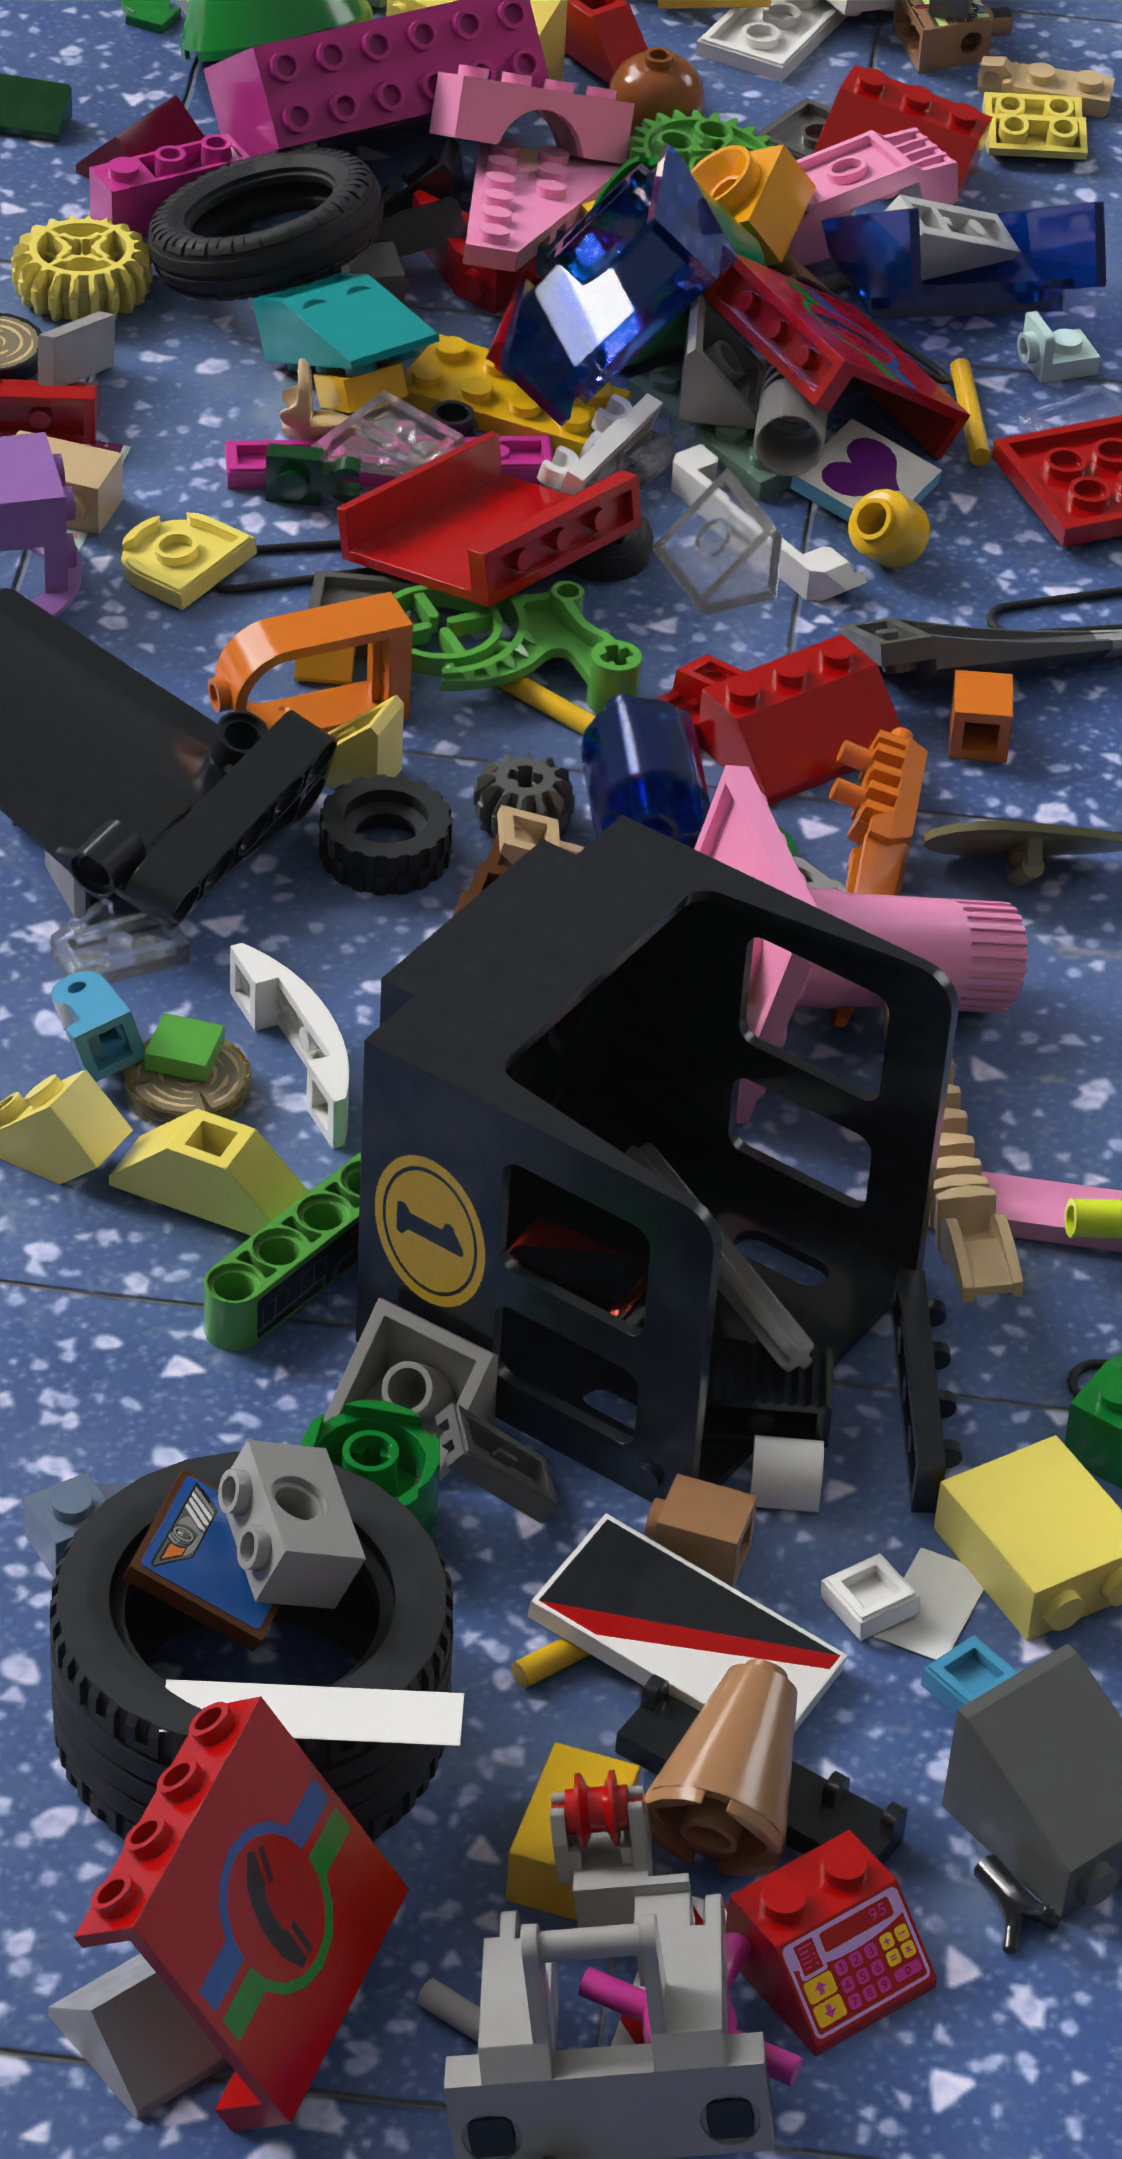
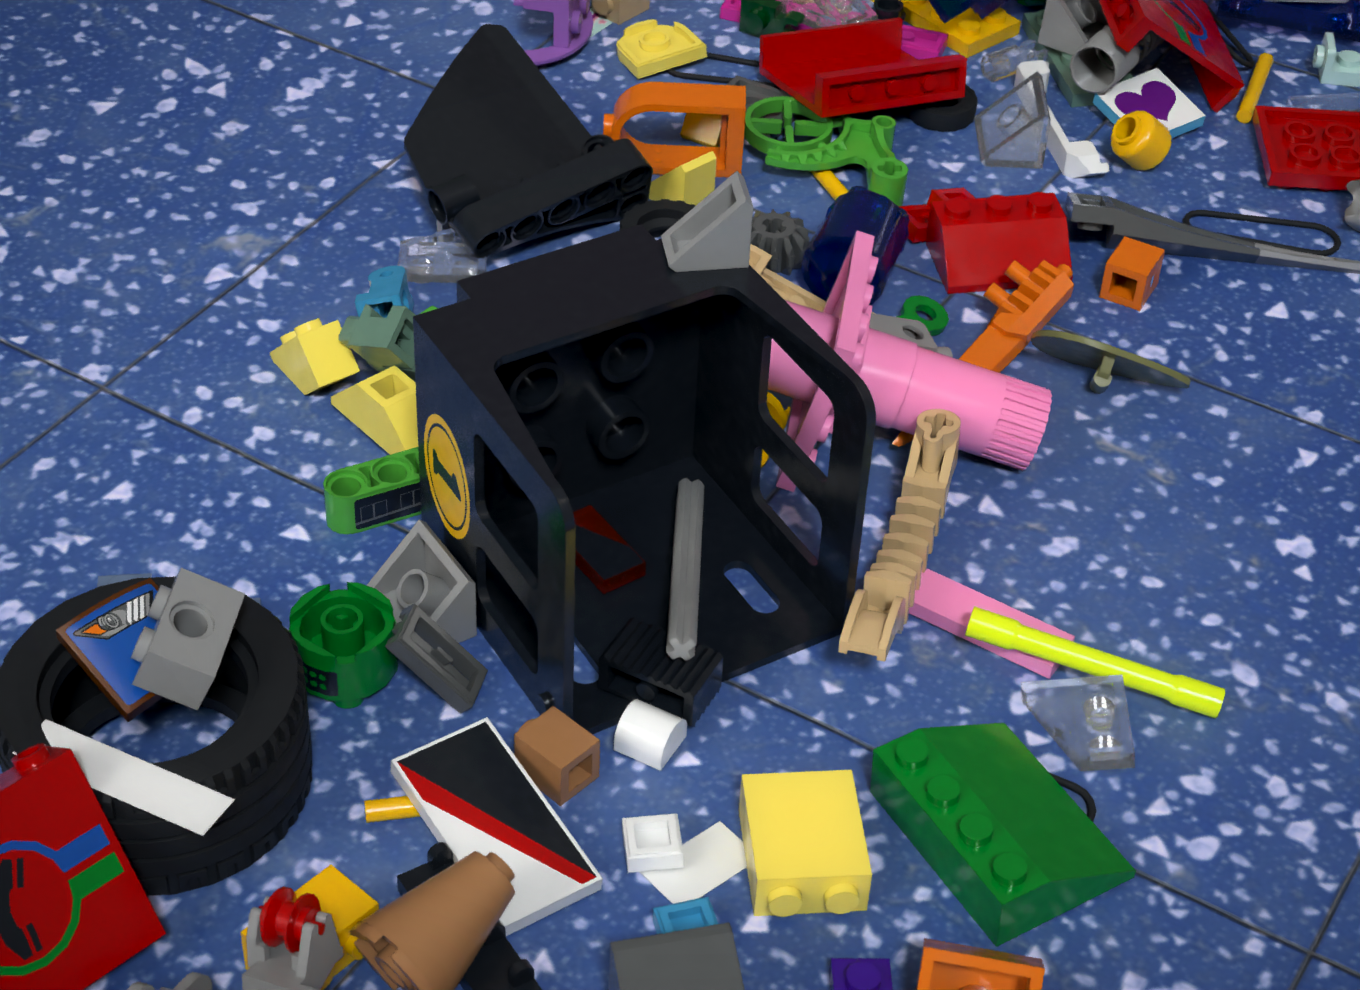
camera: 25 degrees right, 0 degrees up
(179, 1080) = (382, 340): none -> sand green hips
(614, 434) = (977, 45): white plate -> none
(658, 823) = (714, 231): none -> light grey slope
(920, 1400) = (782, 705): black hinge -> none

